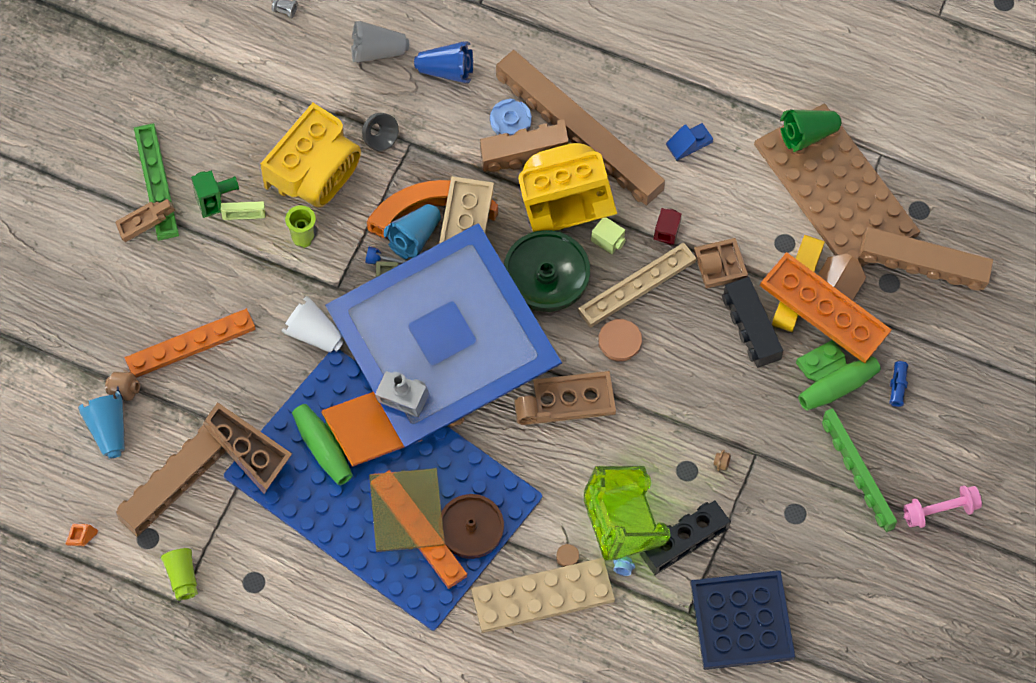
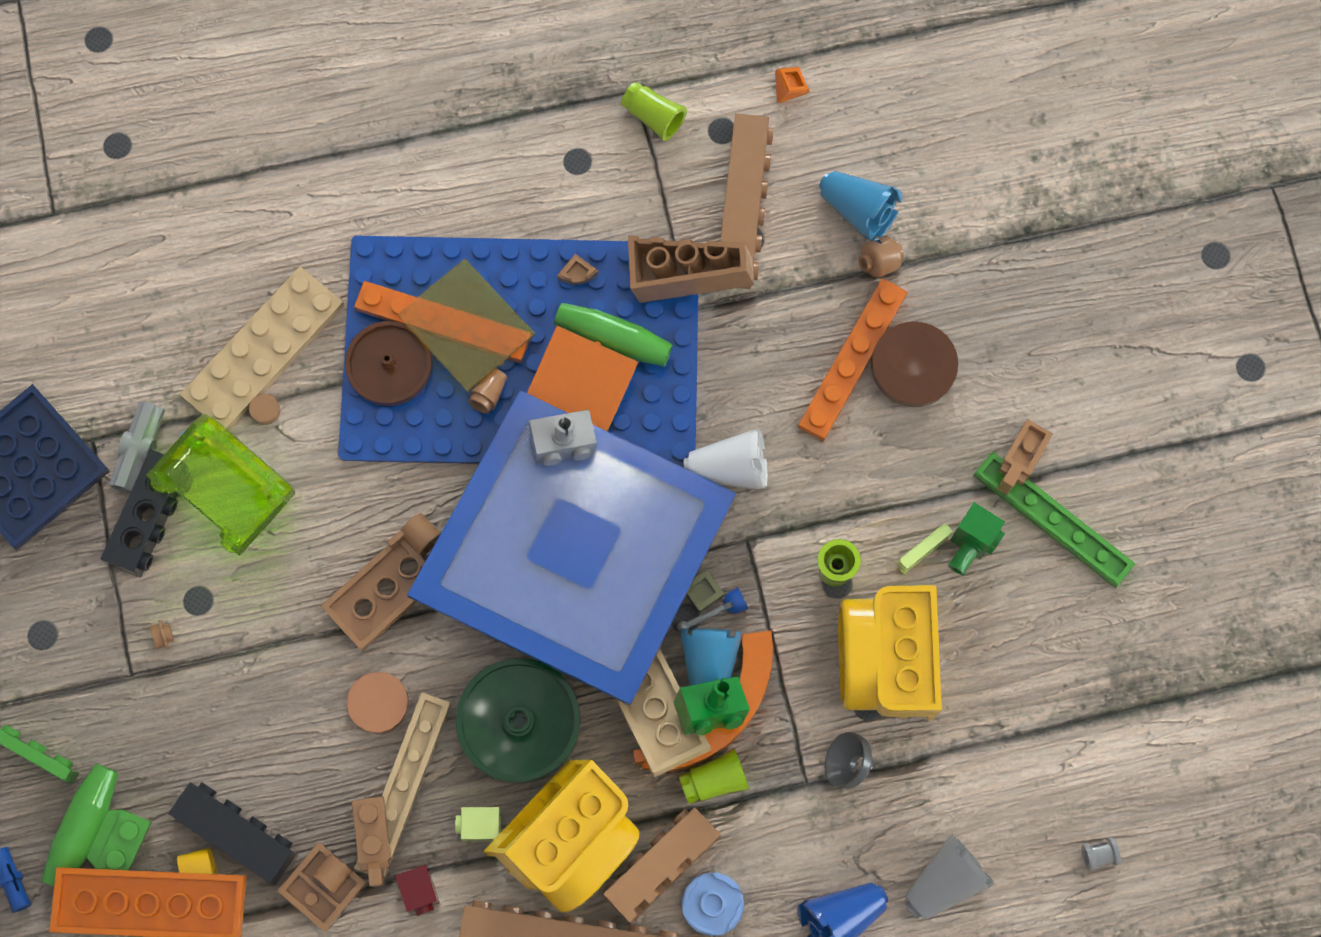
camera: 145 degrees right, 10 degrees up
(158, 311) = (914, 364): none -> reddish brown piece
(312, 503) = (577, 271): none -> medium nougat tile
(425, 461) = (487, 392): none -> medium nougat cone
(434, 194) = (711, 706): none -> green brick
(455, 167) = (714, 778): none -> lime plant
(663, 582) = (136, 445): none -> light grey piece
(674, 264) = (372, 837): none -> medium nougat hinge

